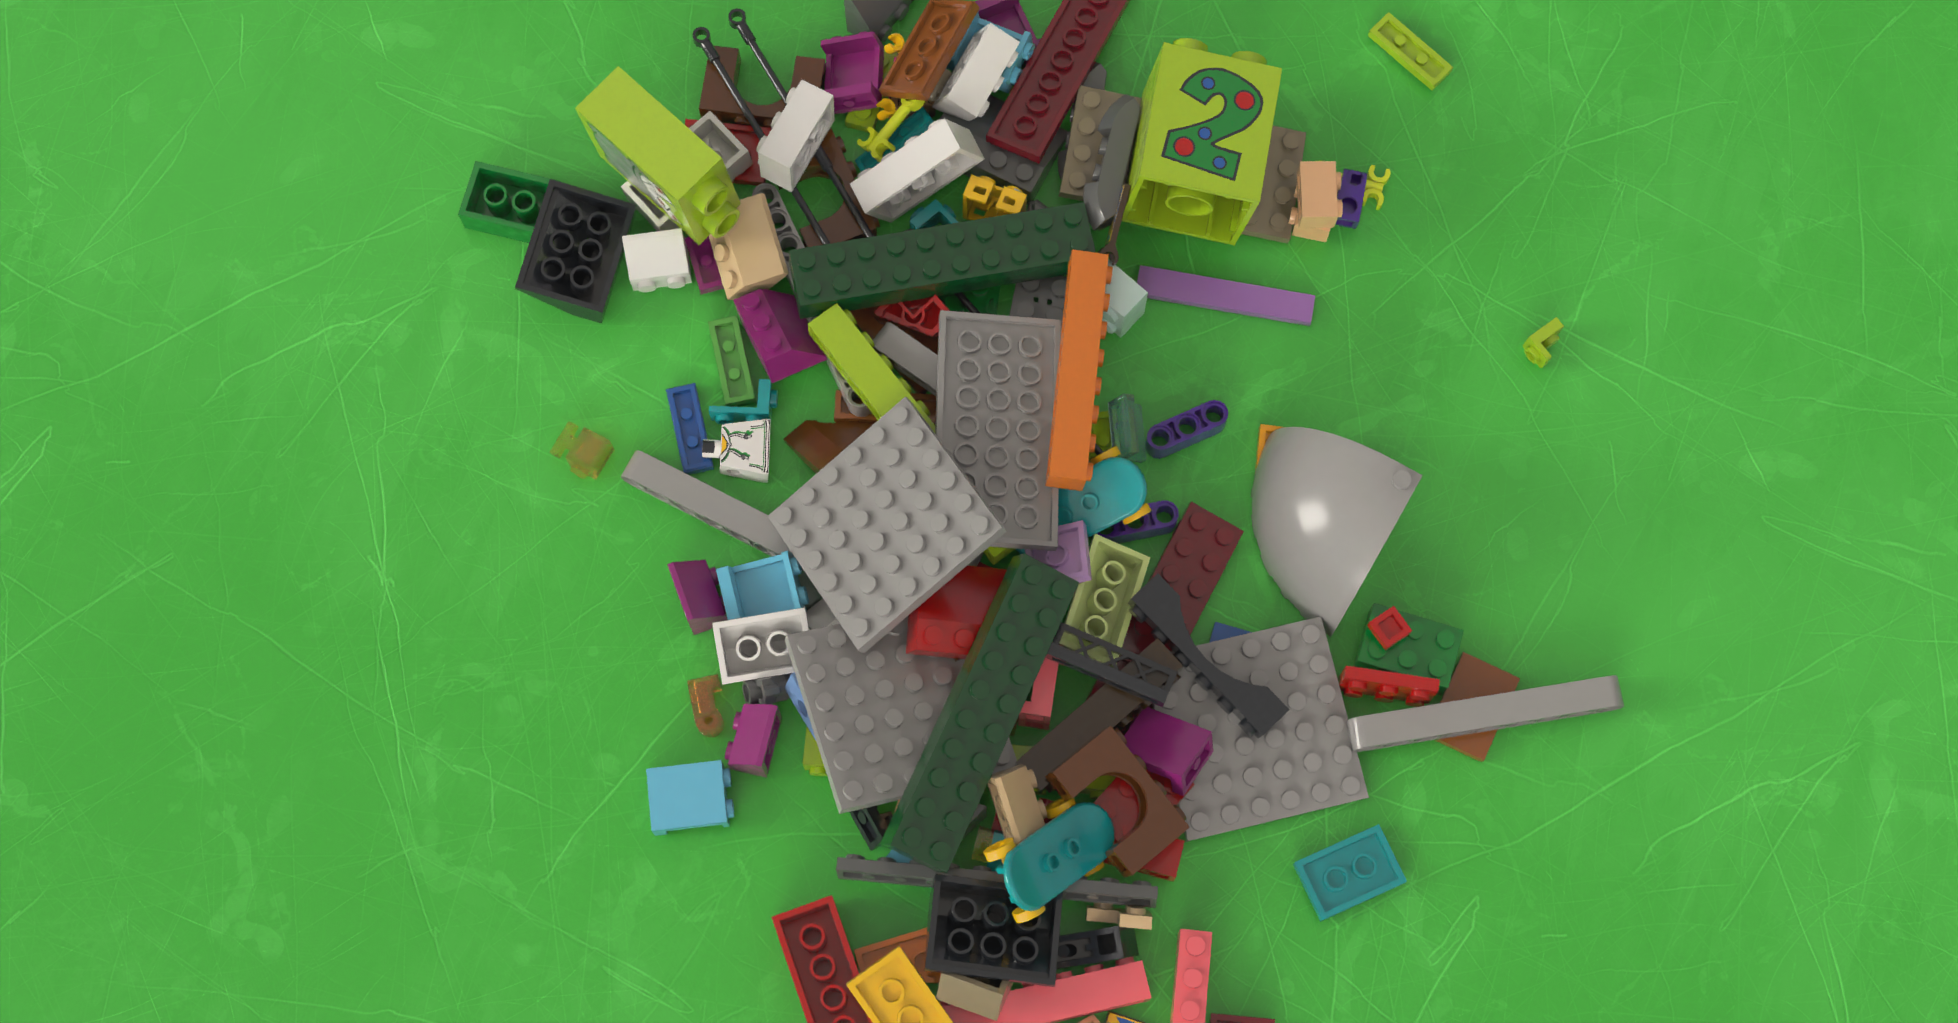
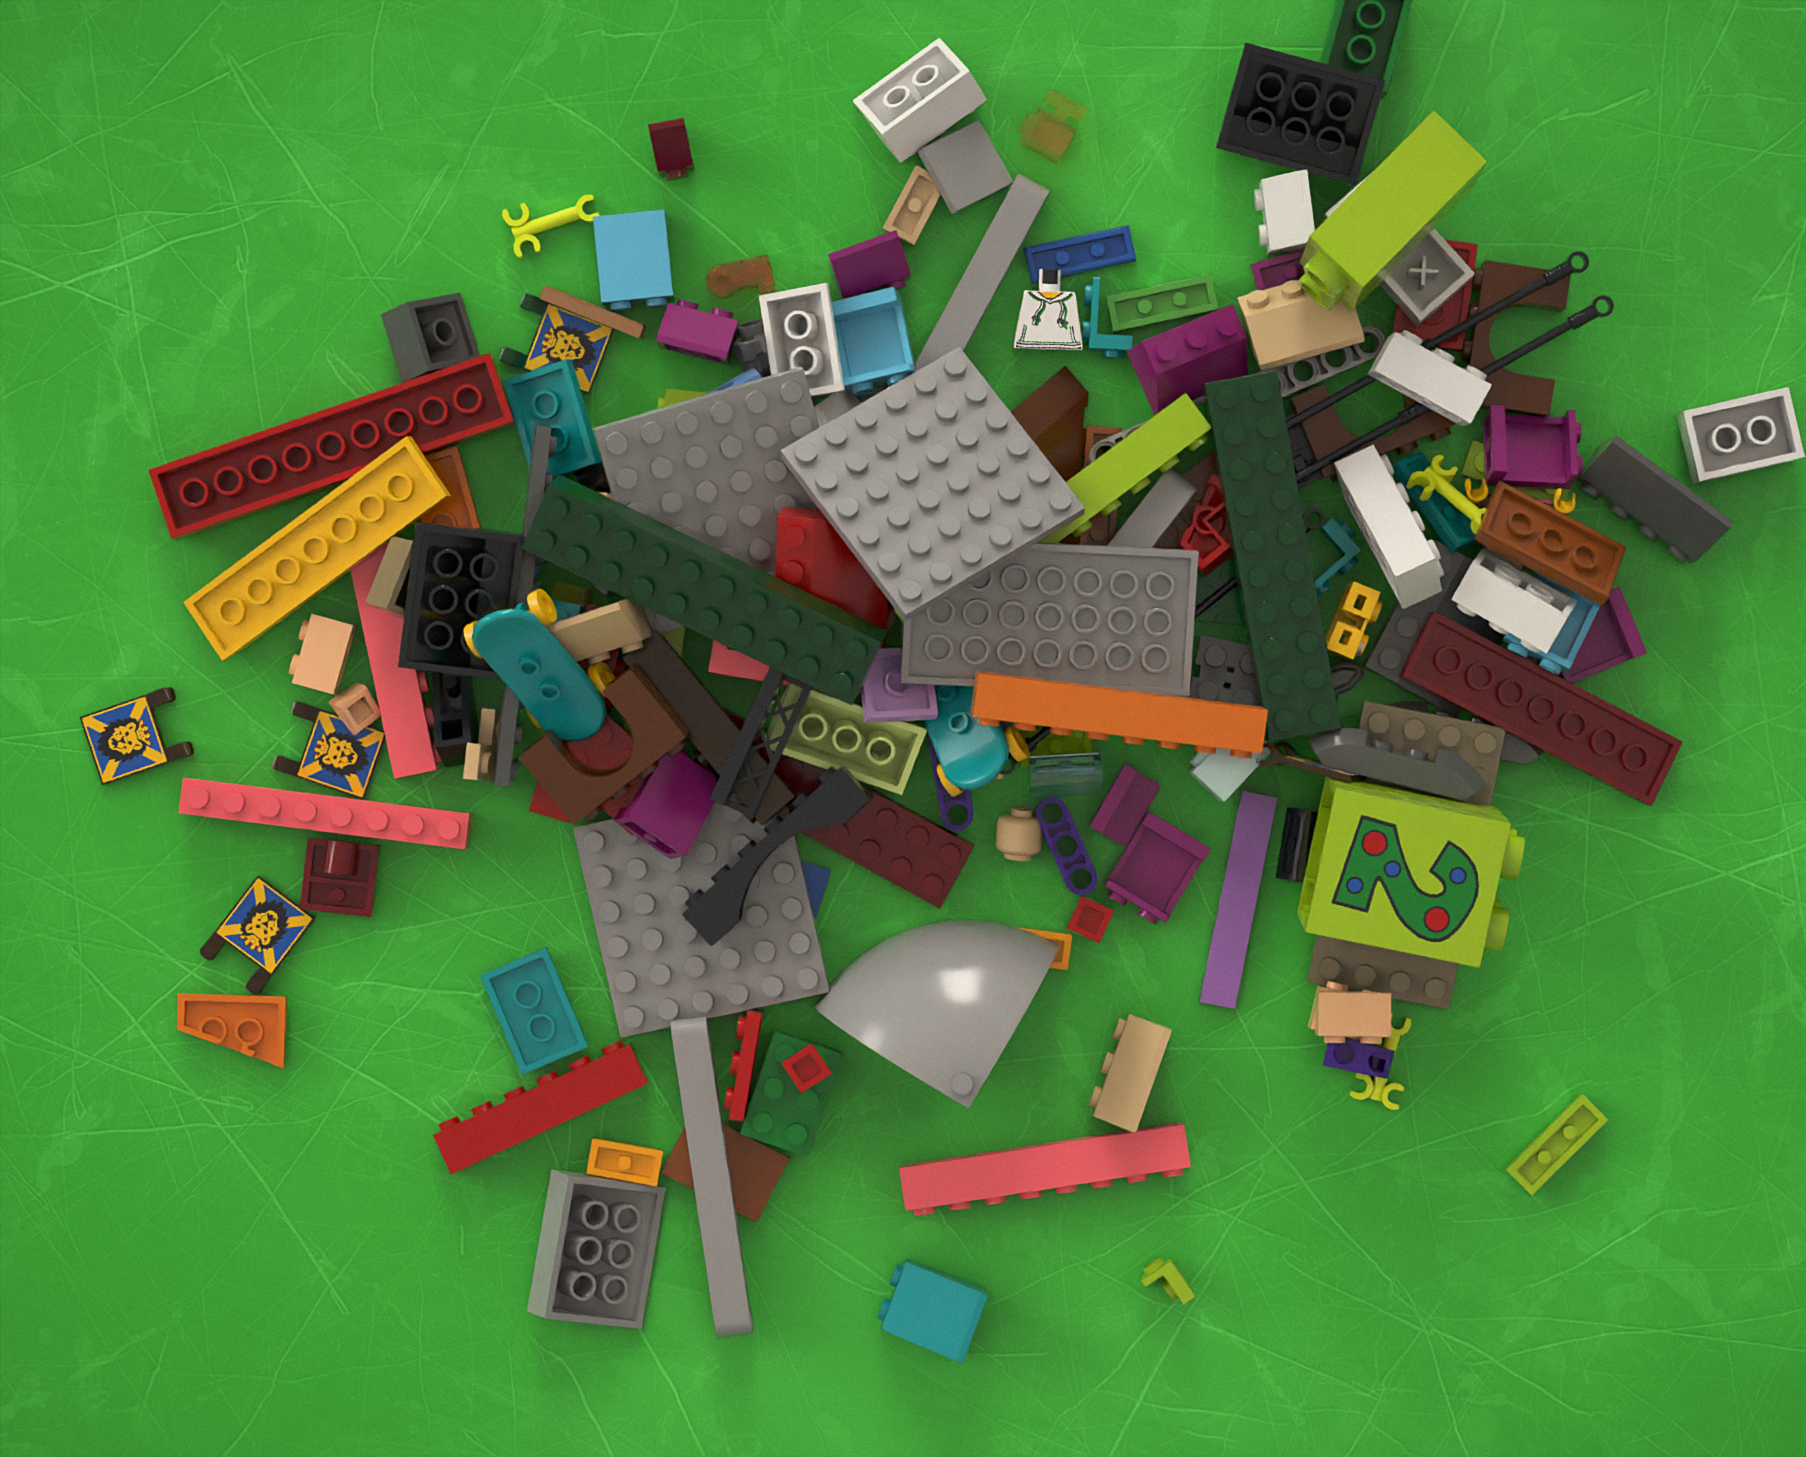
camera: 90 degrees right, 15 degrees up
(556, 558) = (920, 100): none -> white slope
(592, 764) = (671, 148): none -> dark red slope
(614, 519) = (965, 167): none -> light grey tile
(644, 561) = (913, 206): none -> tan plate
(662, 896) = (524, 229): none -> neon yellow bar
(735, 832) = (593, 312): none -> medium nougat tile
(756, 976) = (429, 335): none -> dark grey slope
(766, 859) = (562, 337): none -> flag
(812, 863) = (554, 400): none -> teal plate
(1149, 386) = (1124, 805): none -> magenta panel
(1178, 248) = (1295, 844): none -> black hinge
(1178, 466) = (1019, 834): none -> tan head
(1201, 359) = (1155, 868): none -> magenta panel
(1247, 410) = (1090, 919): none -> red plate
(1374, 370) = (1129, 1071): none -> tan slope
(1434, 864) = (540, 1108): none -> red brick
(1457, 443) = (1043, 1167): none -> coral brick
(1476, 791) = (624, 1162): none -> light orange plate
(1555, 816) = (595, 1250): none -> light grey slope
(1585, 525) = (933, 1309): none -> teal slope

